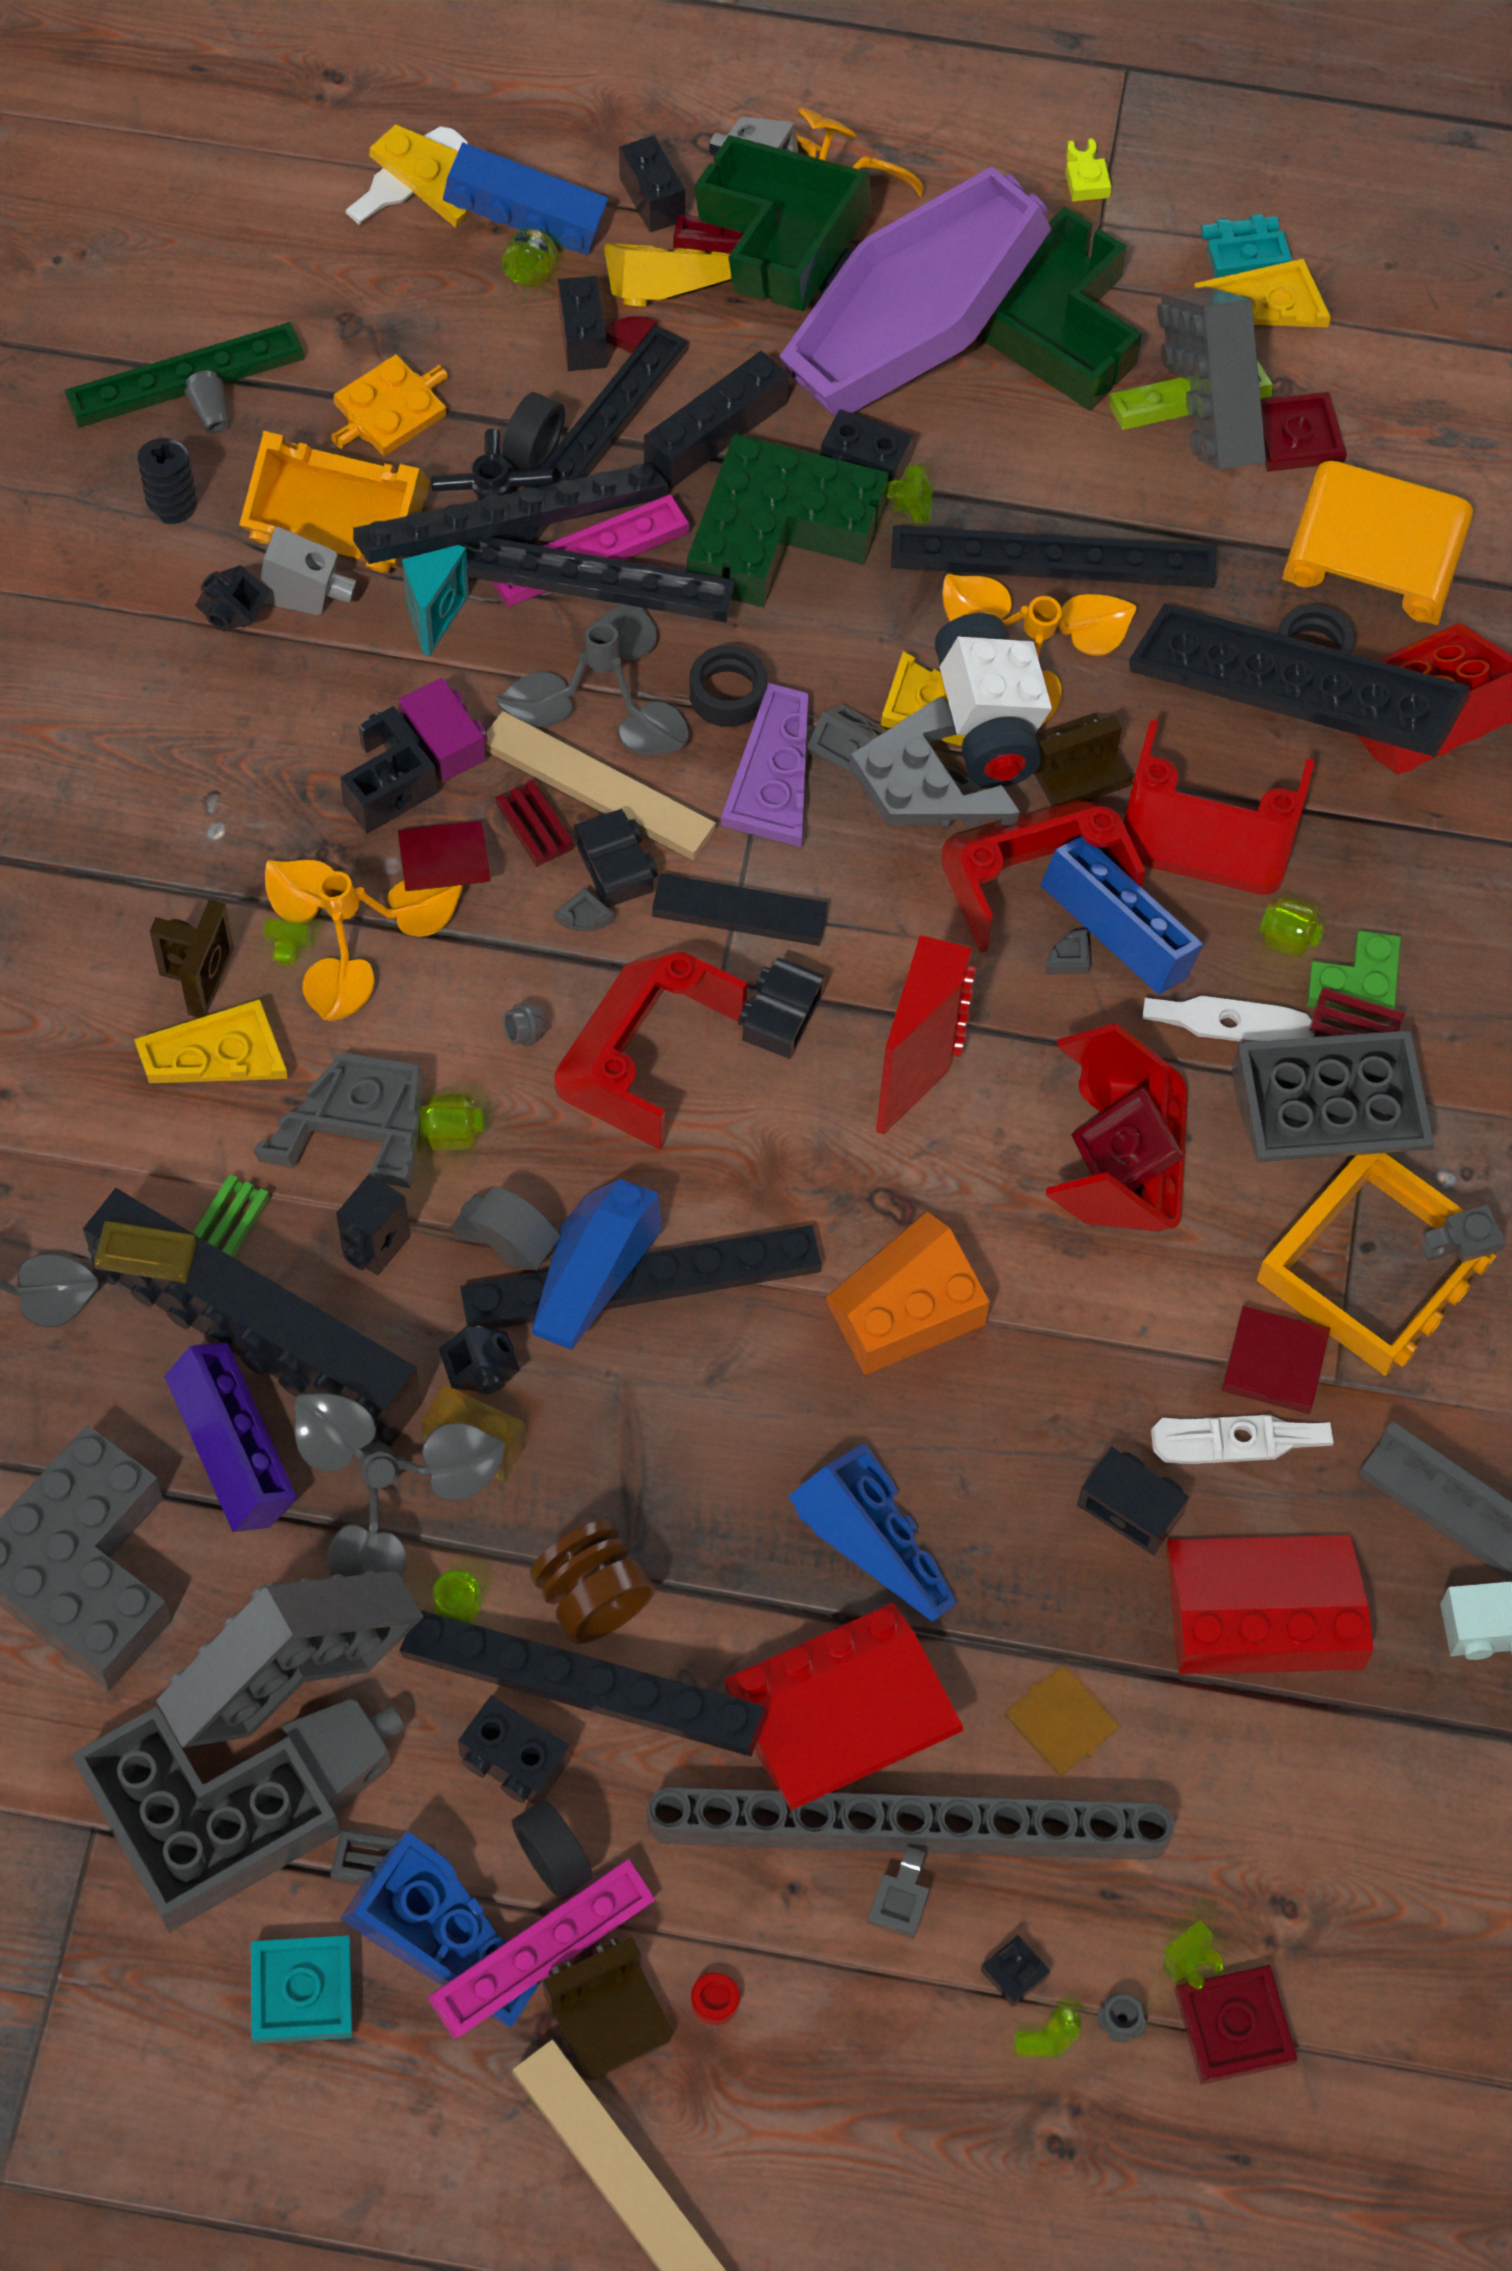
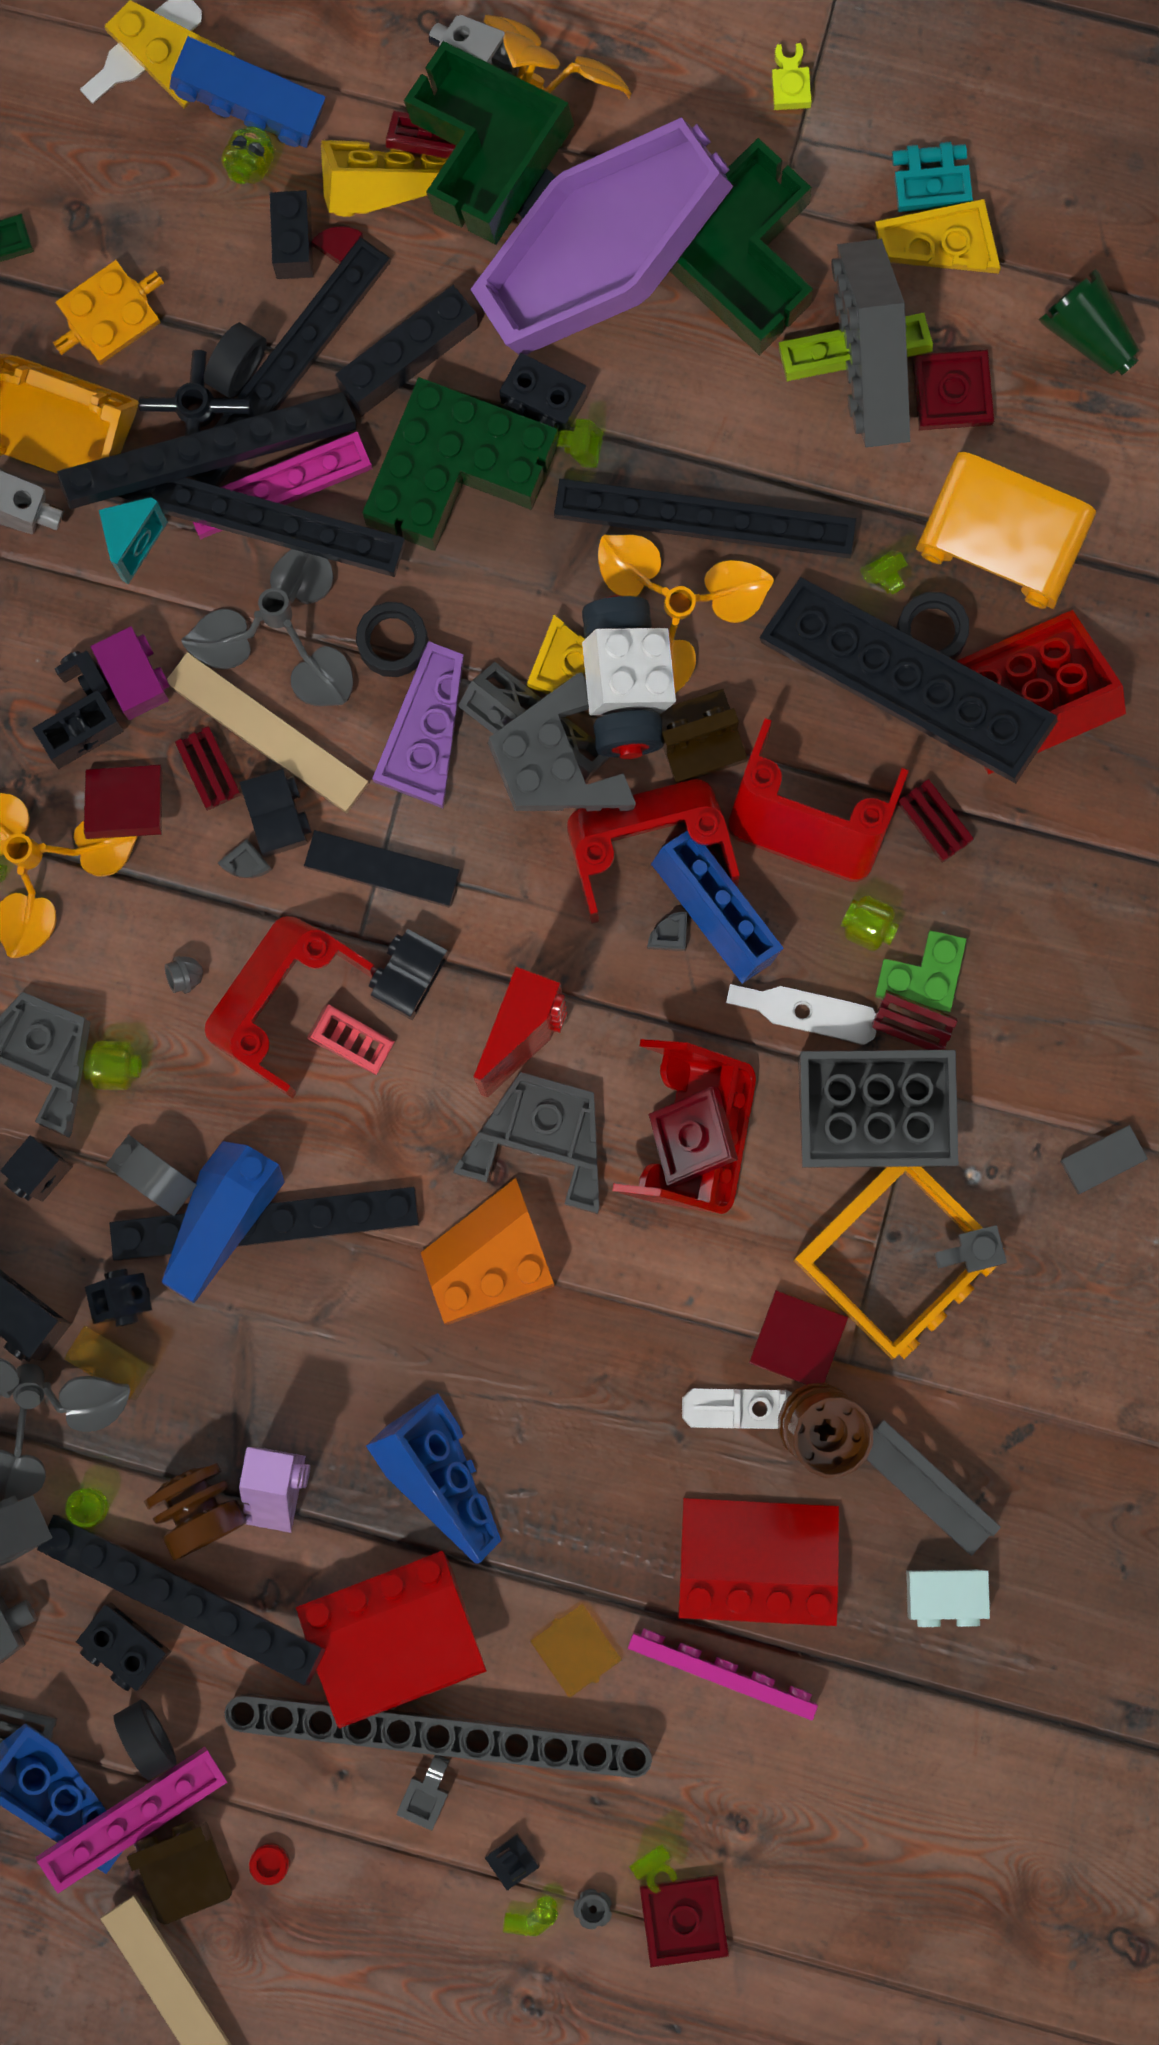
camera: 15 degrees right, 20 degrees up
(651, 183) = (370, 76): black brick -> none
(683, 1539) = (272, 1487): none -> lavender wedge
(703, 1088) = (322, 1022): none -> coral slope
(954, 1149) = (545, 1122): none -> dark grey wing
(1133, 1500) = (657, 1464): black brick -> none
(1243, 1728) = (723, 1673): none -> dark pink plate
(1255, 594) = (885, 571): none -> clear neon green tile
(1344, 1423) = (833, 1448): none -> reddish brown wheel
(1351, 823) = (960, 829): none -> dark red tile
(1436, 358) = (1094, 325): none -> dark green cone

